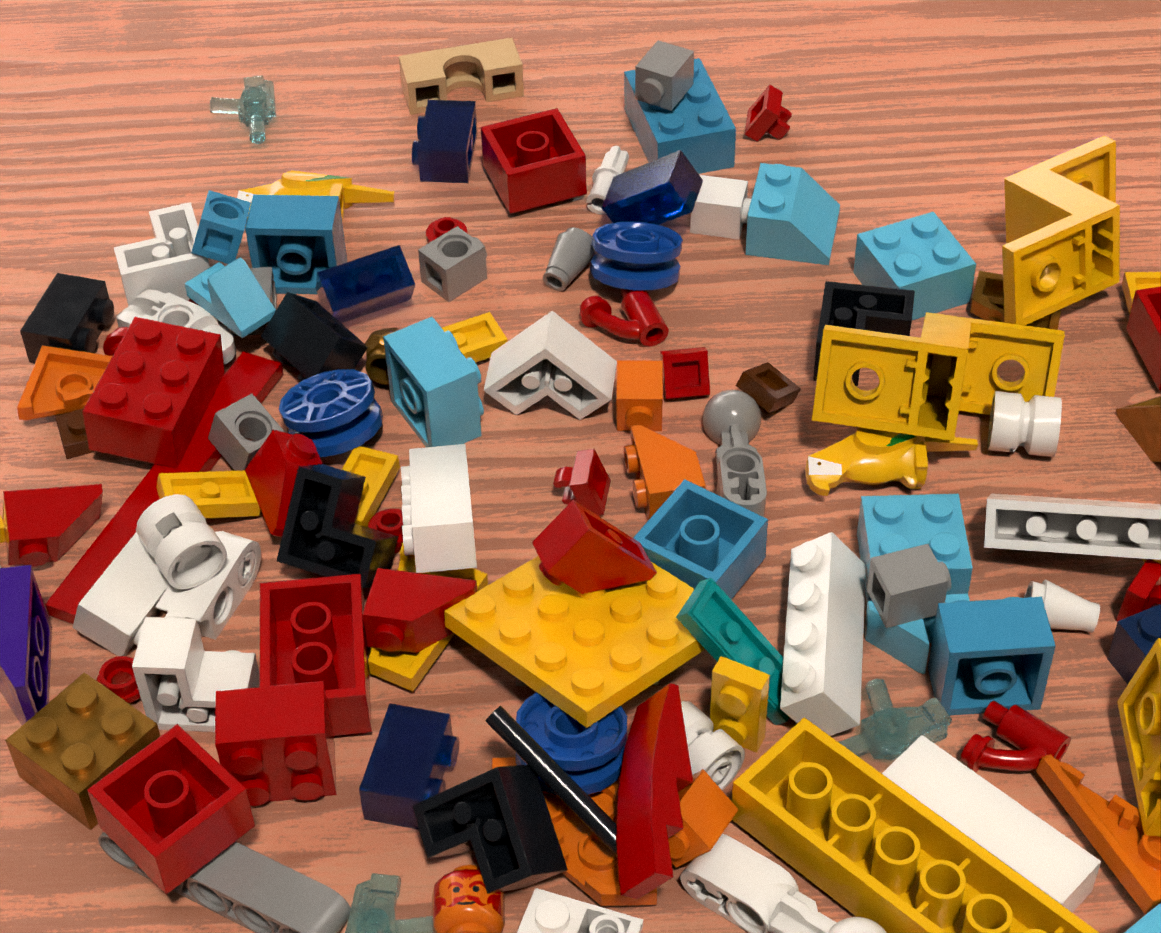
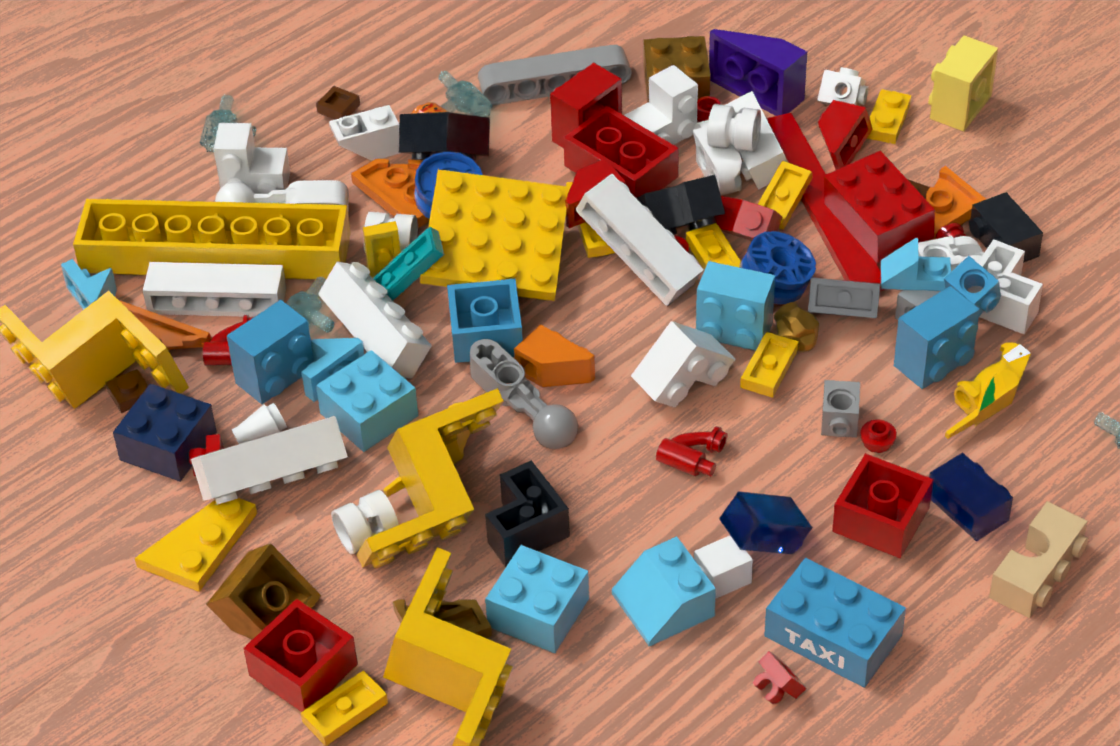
camera: 140 degrees right, 0 degrees up
(172, 808) = (584, 38): red brick -> none
(240, 421) = (806, 224): light grey brick -> none
(365, 284) = (863, 346): clear blue brick -> none
(407, 764) = (523, 152): clear blue brick -> none
(554, 776) = (418, 153): black piece -> none
(569, 257) = (777, 466): light grey cone -> none
(585, 482) = (592, 328): red tile -> none
(590, 552) = (514, 237): red slope -> none
(612, 165) = (829, 547): white axle -> none
(636, 255) = (725, 456): blue wheel -> none
(639, 394) = (621, 397): orange brick -> none
(648, 798) = (383, 177): red slope -> none
(664, 75) = (849, 584): light grey brick -> none
(685, 372) = (612, 430): red tile -> none
(705, 816) = (361, 196): orange brick -> none
(768, 387) = (551, 452): reddish brown plate -> none
(907, 585) = (339, 340): light grey brick -> none

